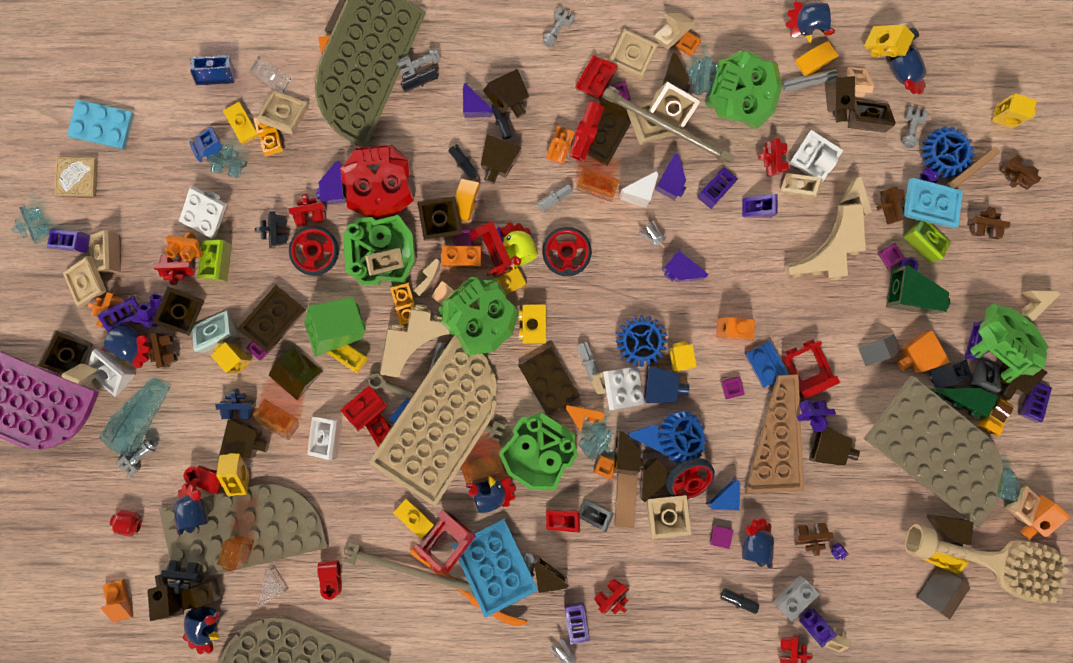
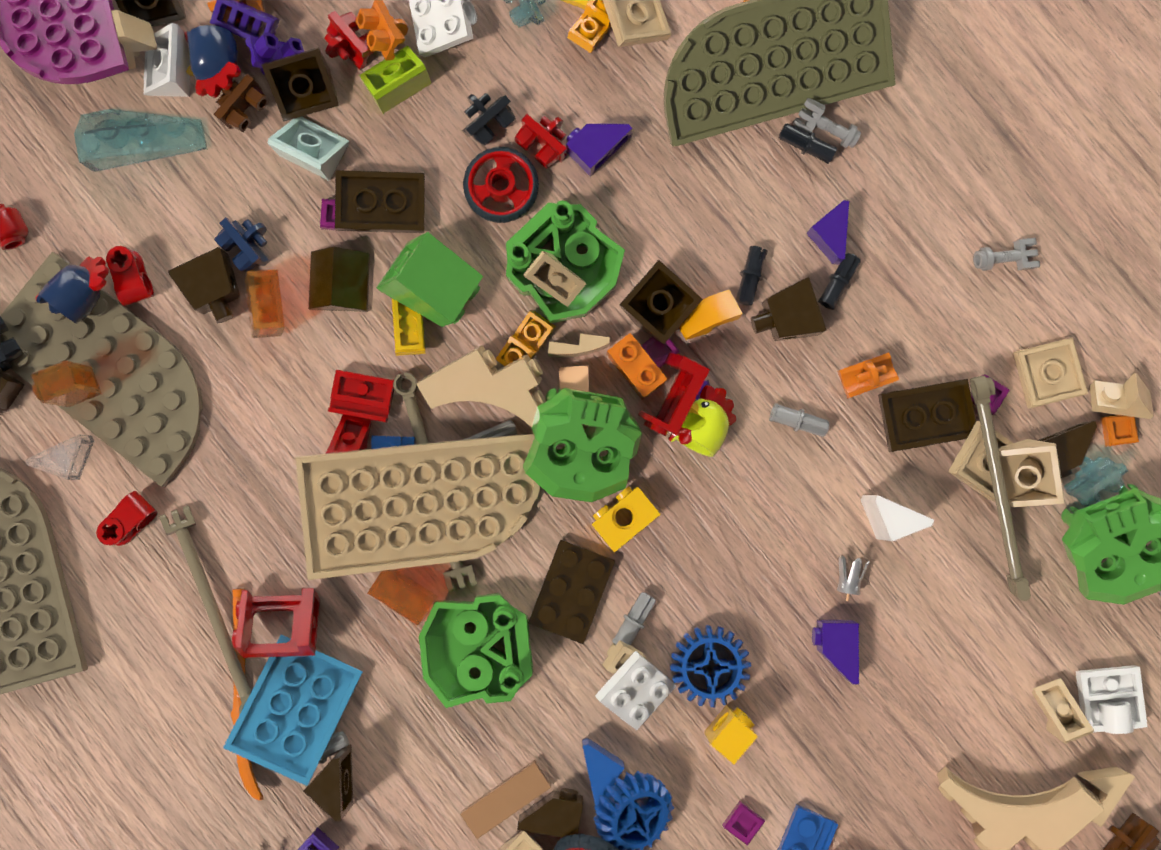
camera: 55 degrees right, 0 degrees up
(148, 446) = (113, 179): light grey hinge -> none
(230, 357) = (294, 190): yellow brick -> none
(233, 474) = (158, 306): yellow brick -> none
(324, 438) = (288, 378): white slope -> none
(379, 197) = (628, 210): red brick -> none
(413, 518) = (277, 562): yellow plate -> none
(492, 494) = (380, 633): dark blue piece -> none
(508, 93) = (879, 262): dark brown torso -> none
(511, 281) = (655, 449): yellow plate -> none
(551, 244) = (726, 504): red wheel -> none
(563, 520) = (417, 747): red slope -> none
(578, 414) = (559, 661): orange slope -> none
(586, 131) = (911, 393): red piece -> none
(596, 77) = (986, 352): red plate -> none
(596, 515) = (455, 781): dark grey slope -> none
(597, 184) = (857, 460): clear orange brick -> none
(598, 442) = (545, 711): clear light blue hips -> none
(604, 467) = (523, 744): orange tile -> none
(626, 456) = (556, 761): dark brown slope -> none
(663, 386) = (676, 737): dark blue torso -> none
(673, 179) = (938, 545): dark purple slope -> none
(708, 196) = (953, 607): dark purple slope -> none
(735, 328) = (819, 771): orange torso -> none
(760, 206) = (994, 680): dark purple slope -> none
(772, 157) = (1067, 647): red hips -> none

